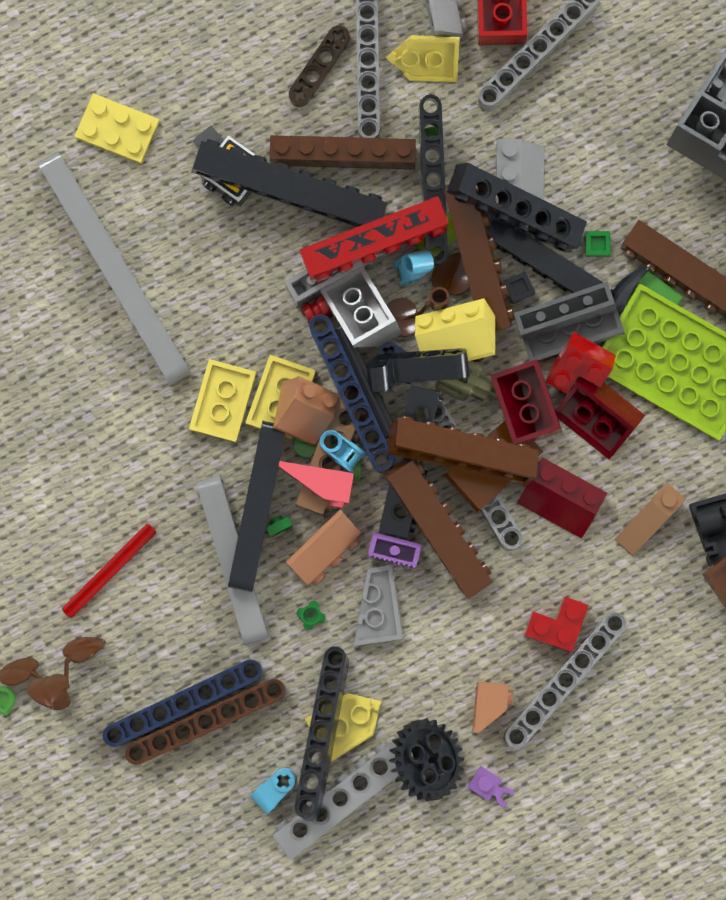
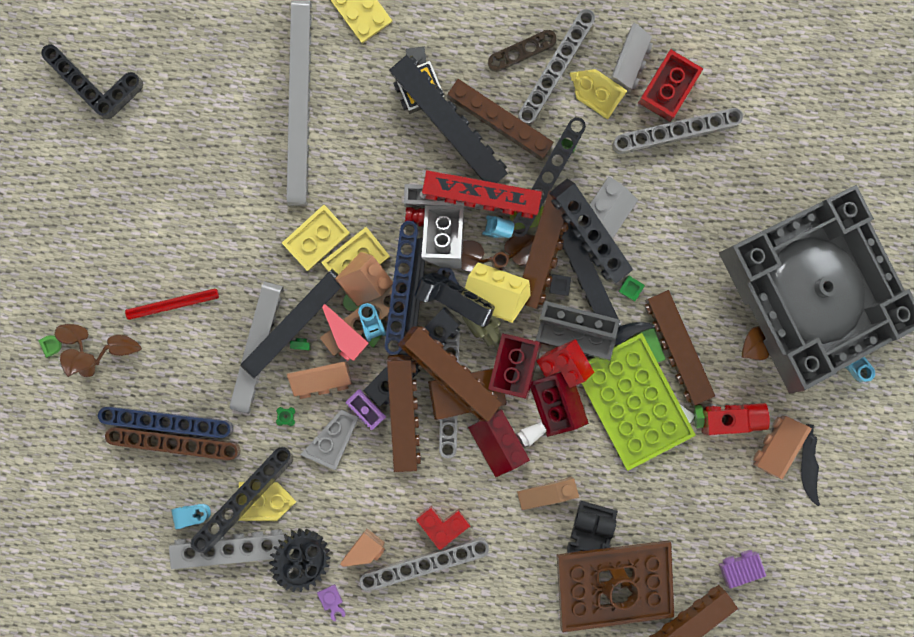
camera: 25 degrees right, 5 degrees up
(590, 465) = (530, 434): none -> white cone

